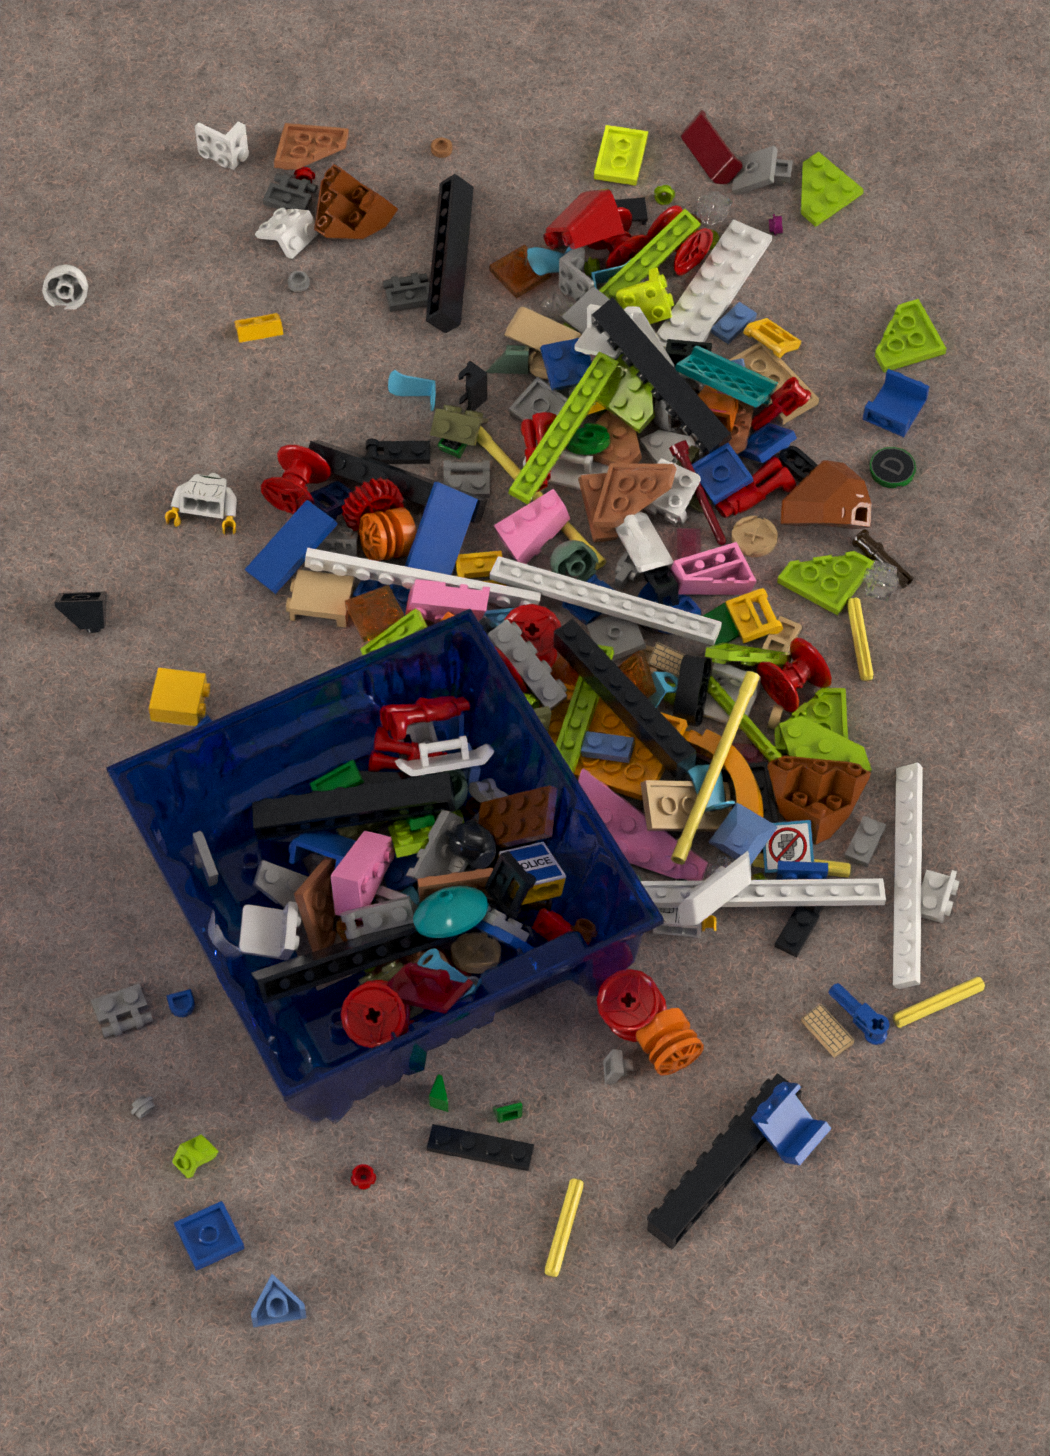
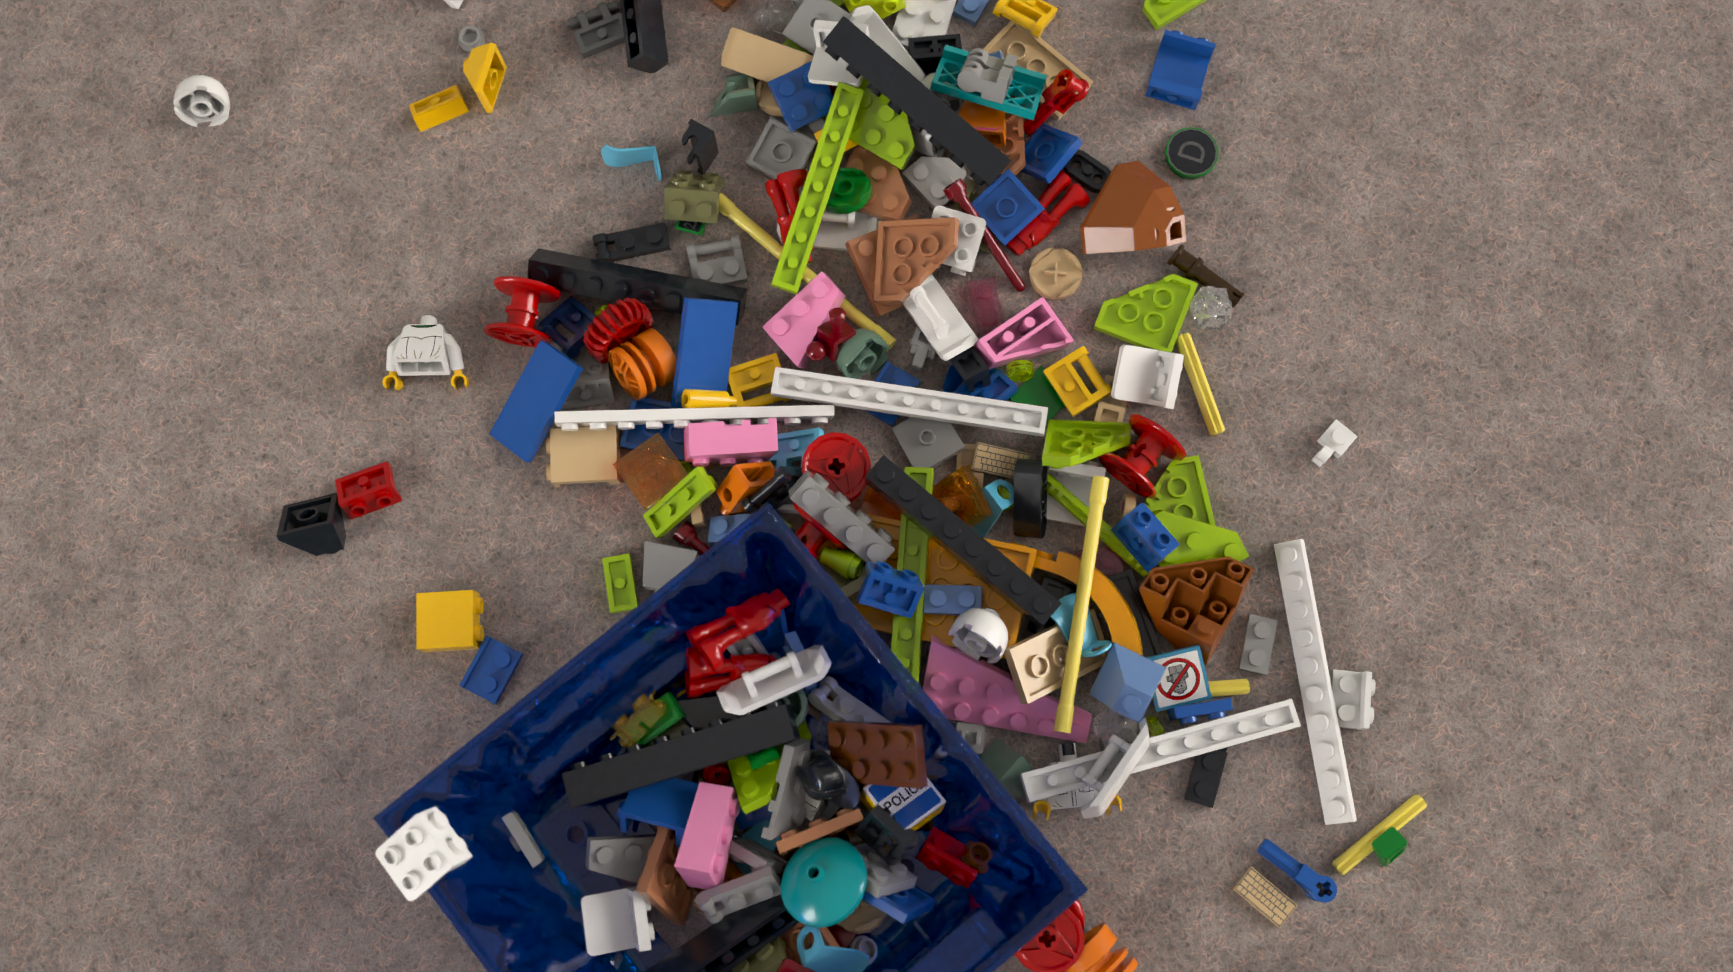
camera: 10 degrees left, 20 degrees up
(133, 593) = (367, 490): none -> red bracket
(137, 797) = (422, 852): none -> white bracket
(305, 306) = (485, 73): none -> yellow slope
(330, 767) = (645, 710): none -> clear yellow hinge
(425, 563) = (707, 399): none -> yellow cylinder
(549, 538) = (829, 336): none -> dark red piece
(559, 724) = (890, 589): none -> blue bracket
(622, 768) = (980, 633): none -> white cylinder
(706, 599) = (1020, 370): none -> clear neon green tile
(726, 369) = (987, 75): none -> light grey legs
(781, 730) = (1145, 537): none -> blue bracket
(812, 618) = (1147, 376): none -> white bracket
(944, 1010) = (1389, 846): none -> green slope
(966, 701) = (1334, 441): none -> white plate

